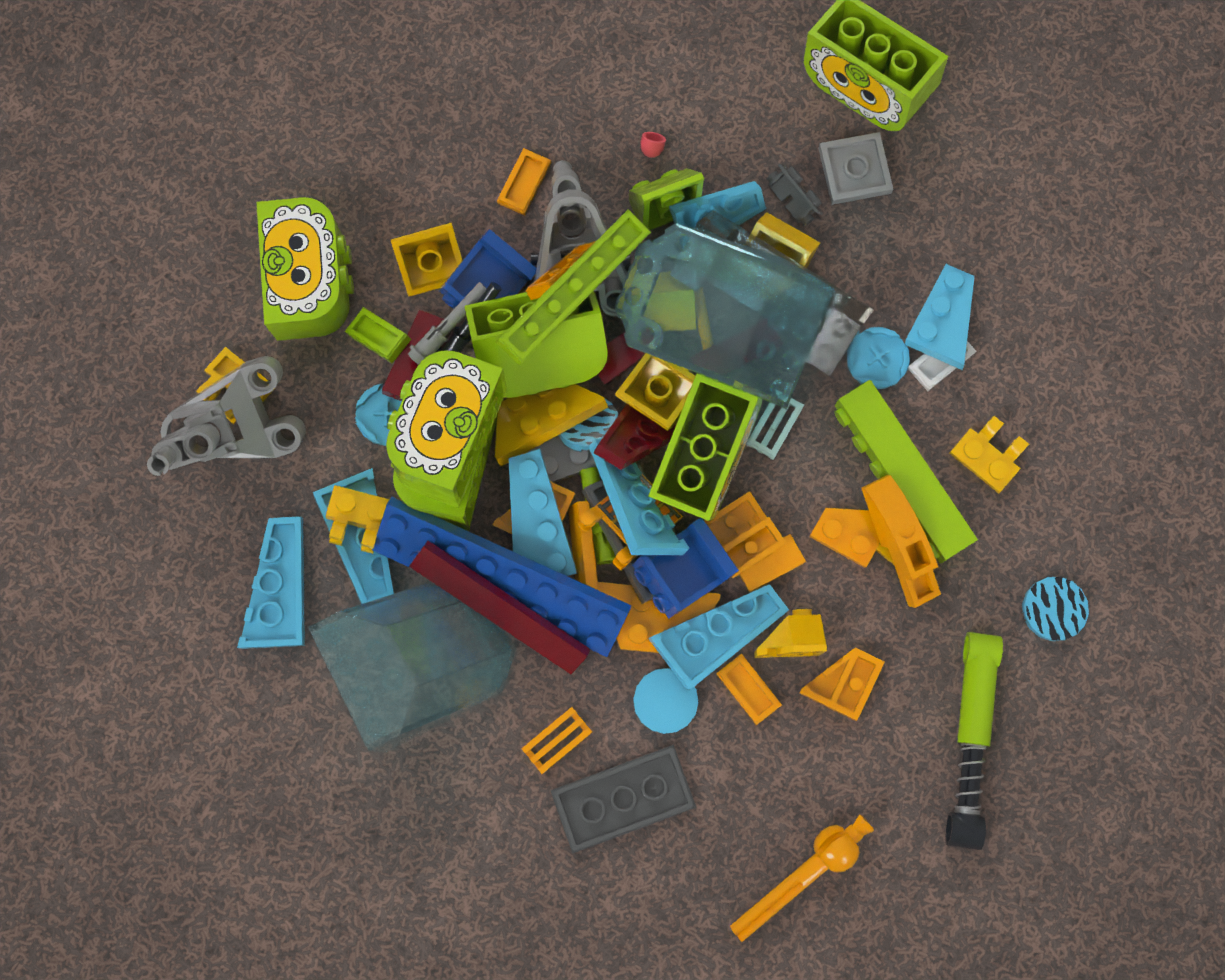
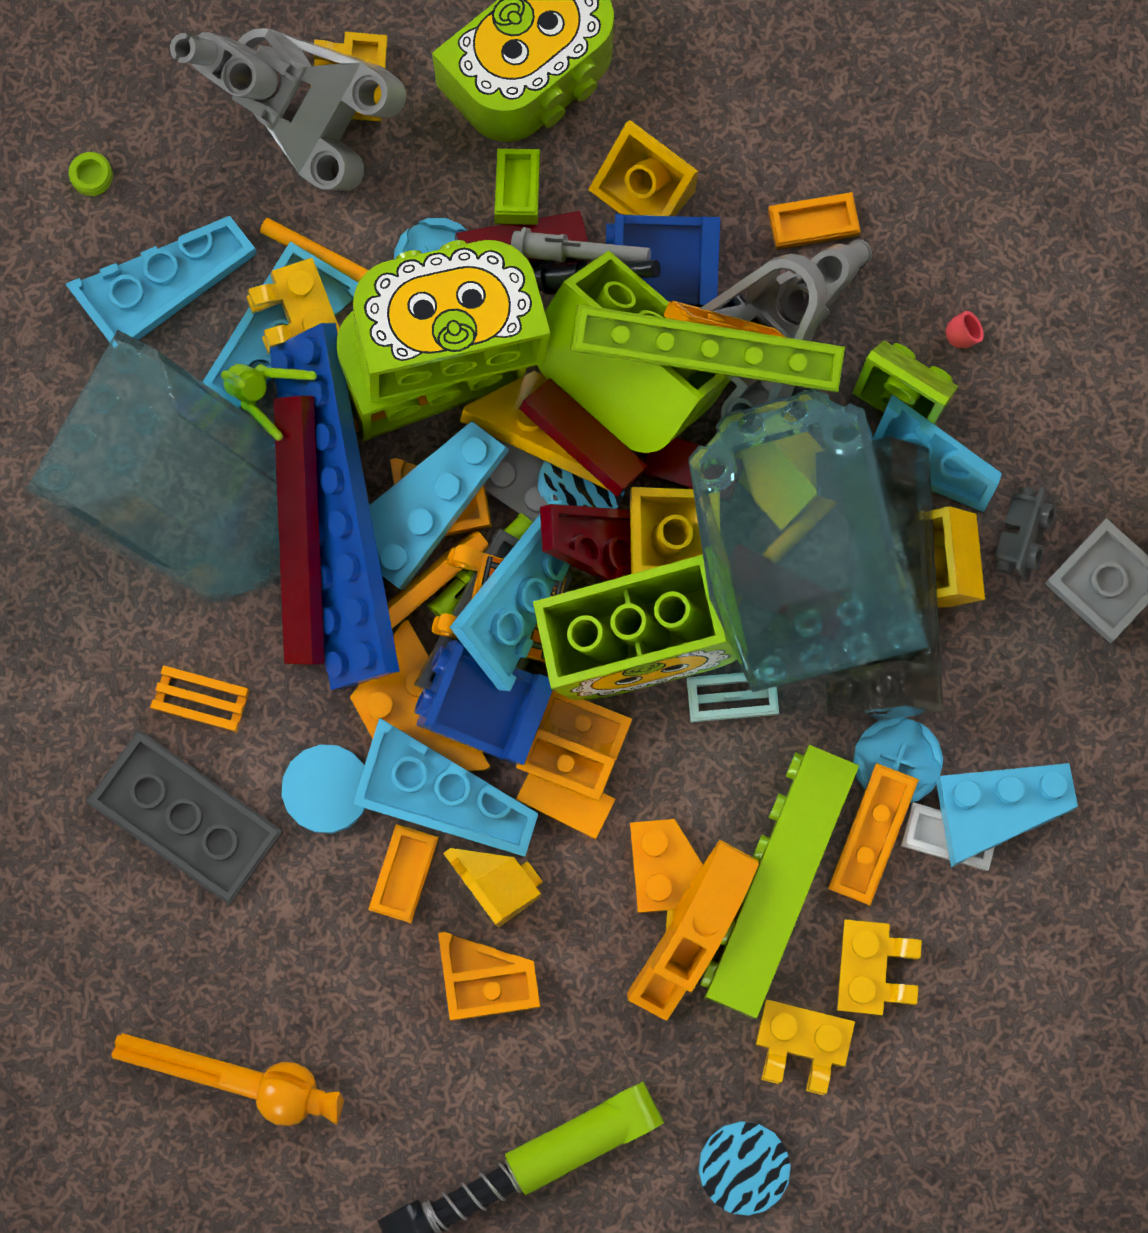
camera: 55 degrees right, 0 degrees up
(176, 585) = (90, 173): none -> lime tile
(365, 464) = (285, 235): none -> light orange bar
(388, 576) = (249, 386): none -> lime plant
(565, 400) = (583, 437): none -> dark red tile
(912, 400) = (873, 833): none -> light orange tile
(1002, 519) = (806, 1035): none -> yellow plate

